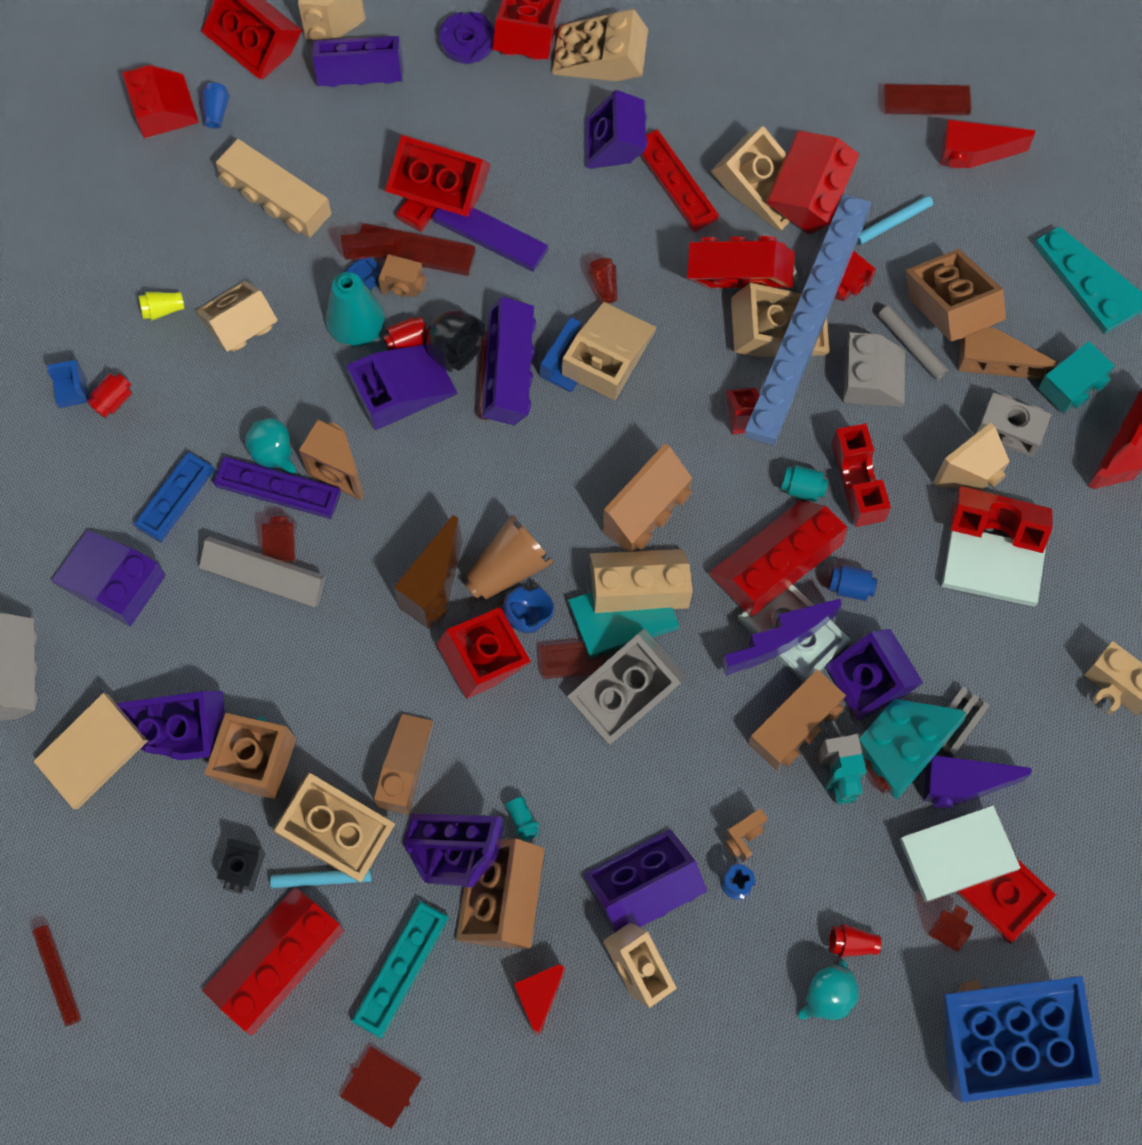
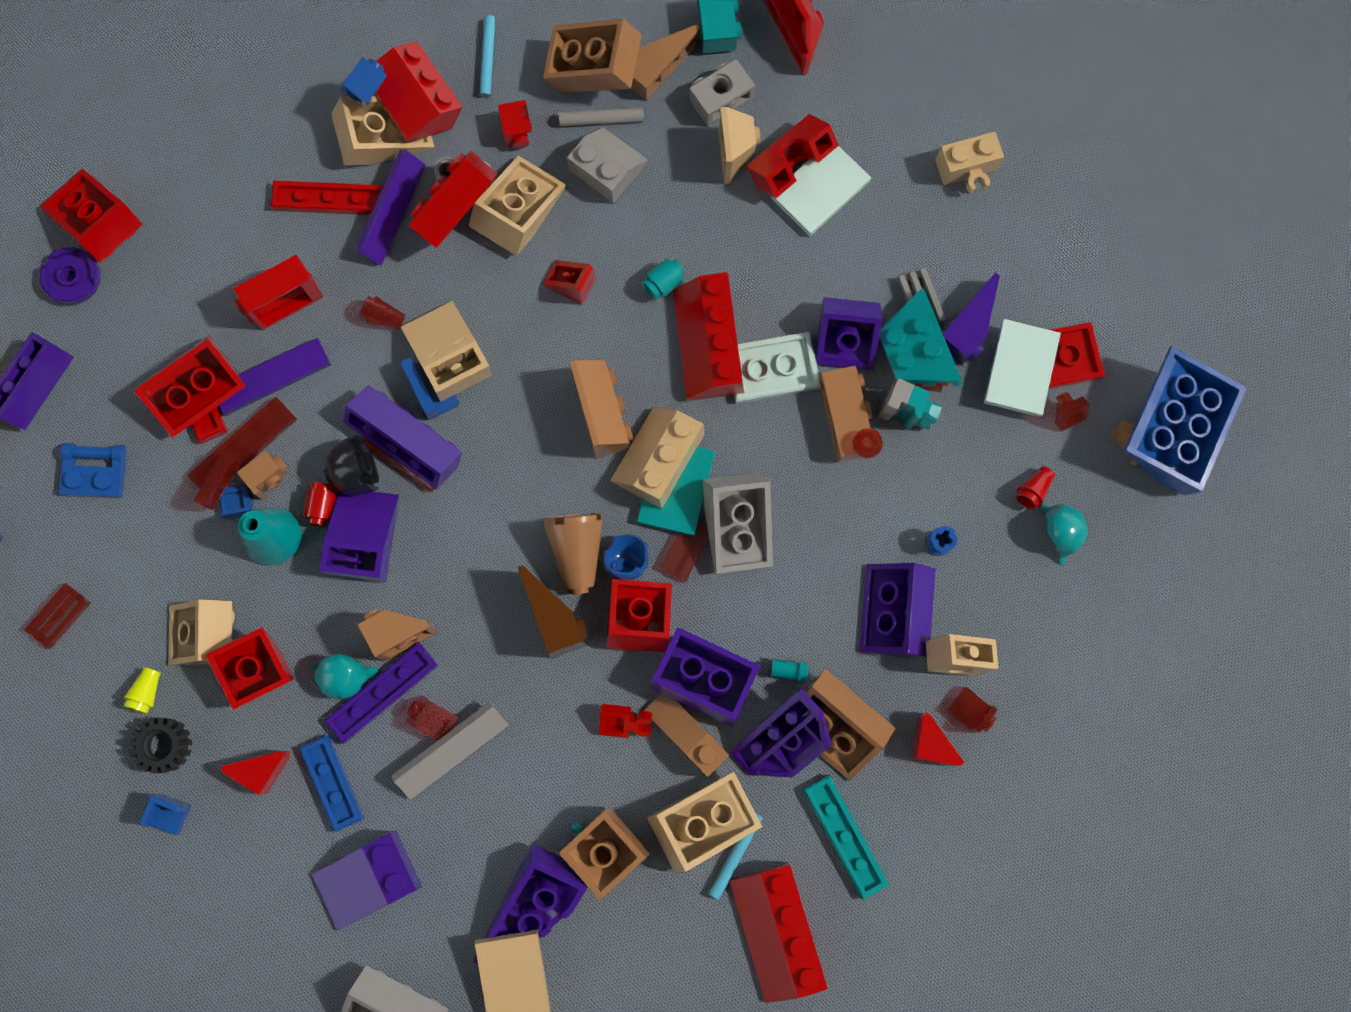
camera: 60 degrees left, 10 degrees up
(110, 394) = (200, 784): red brick -> none
(117, 331) = (143, 739): none -> black tyre
(147, 433) = (259, 772): none -> red slope
(183, 201) = (49, 608): none -> clear red tile
(230, 367) = (249, 667): none -> red slope
(252, 858) = (679, 906): black brick -> none
(273, 188) = (99, 529): tan brick -> none
(311, 160) = (92, 480): none -> blue plate
(376, 697) = (619, 721): none -> red plate
(381, 1087) = (924, 906): clear red piece -> none
(464, 742) = (704, 677): none -> dark purple brick
(562, 188) = (277, 293): none -> red window
(596, 1015) = (972, 711): none -> clear red bracket
(602, 47) = (163, 173): tan slope -> none
(615, 131) = (253, 215): dark purple slope -> none
(720, 224) = (390, 207): none -> dark purple tile
(747, 828) = (906, 506): medium nougat bracket -> none
(775, 758) = (863, 451): none -> clear red plate
(788, 133) = (364, 81): none -> blue brick
(790, 631) = (779, 374): dark purple slope -> none
(807, 321) = (536, 180): medium blue plate -> none
(852, 582) = (767, 299): blue brick -> none
(864, 493) = (669, 227): red arch -> none

